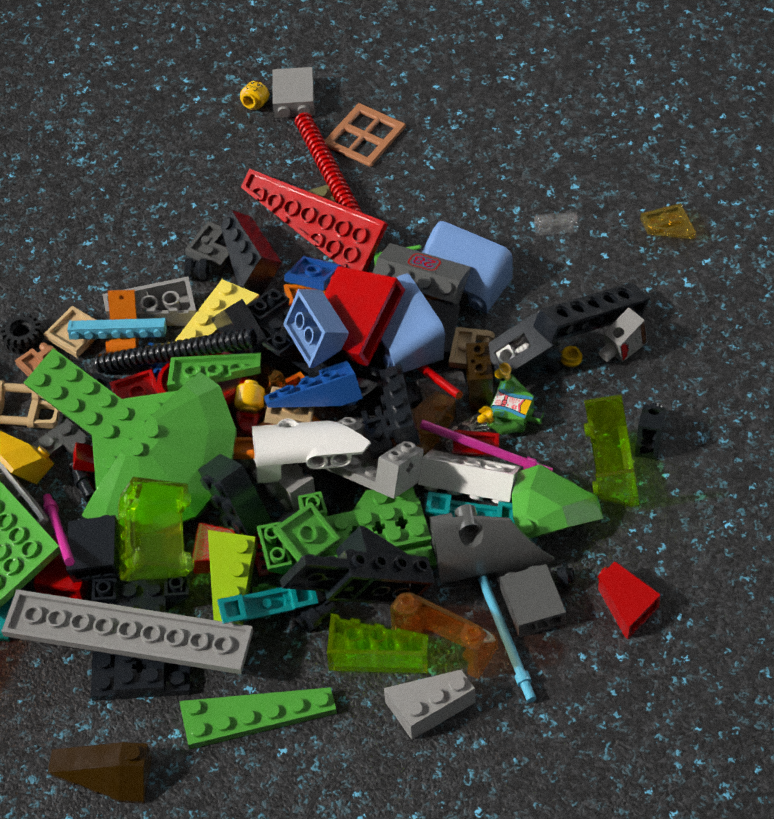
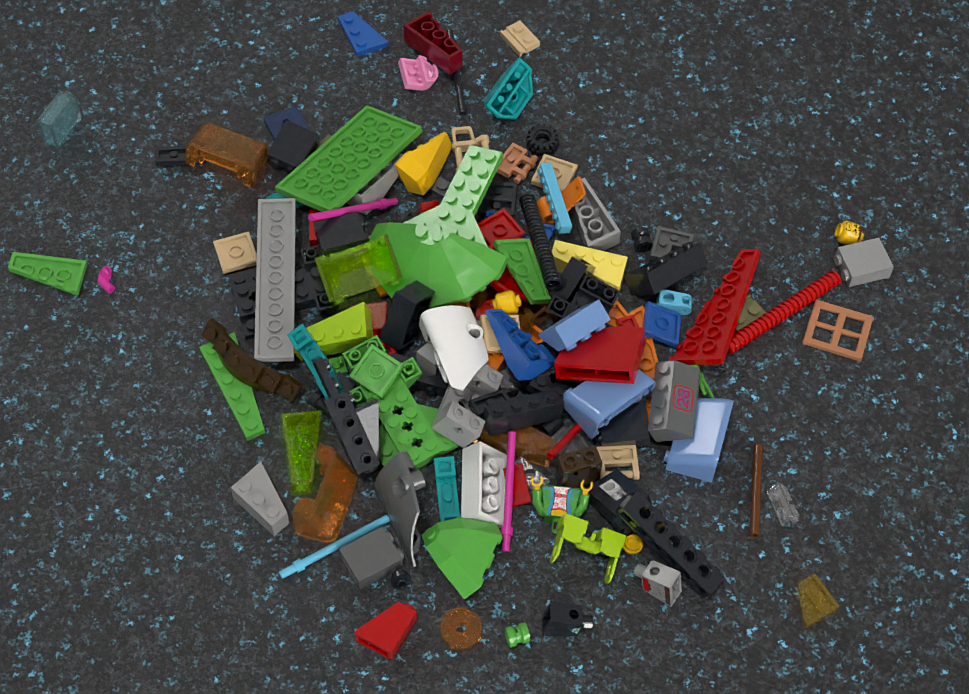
camera: 70 degrees right, 5 degrees up
(59, 682) = (235, 252): none -> tan plate
(108, 769) = (170, 303): dark brown wedge -> none
(237, 690) = (247, 368): none -> dark brown piece
(289, 255) = (675, 301): none -> medium azure leg
(533, 241) = (756, 485): none -> reddish brown piece
(556, 390) = (603, 541): none -> lime piece
(611, 451) = (520, 596): clear neon green windscreen -> none
(636, 541) = (458, 640): none -> clear orange plate
(656, 477) = (517, 634): none -> bright green wheel

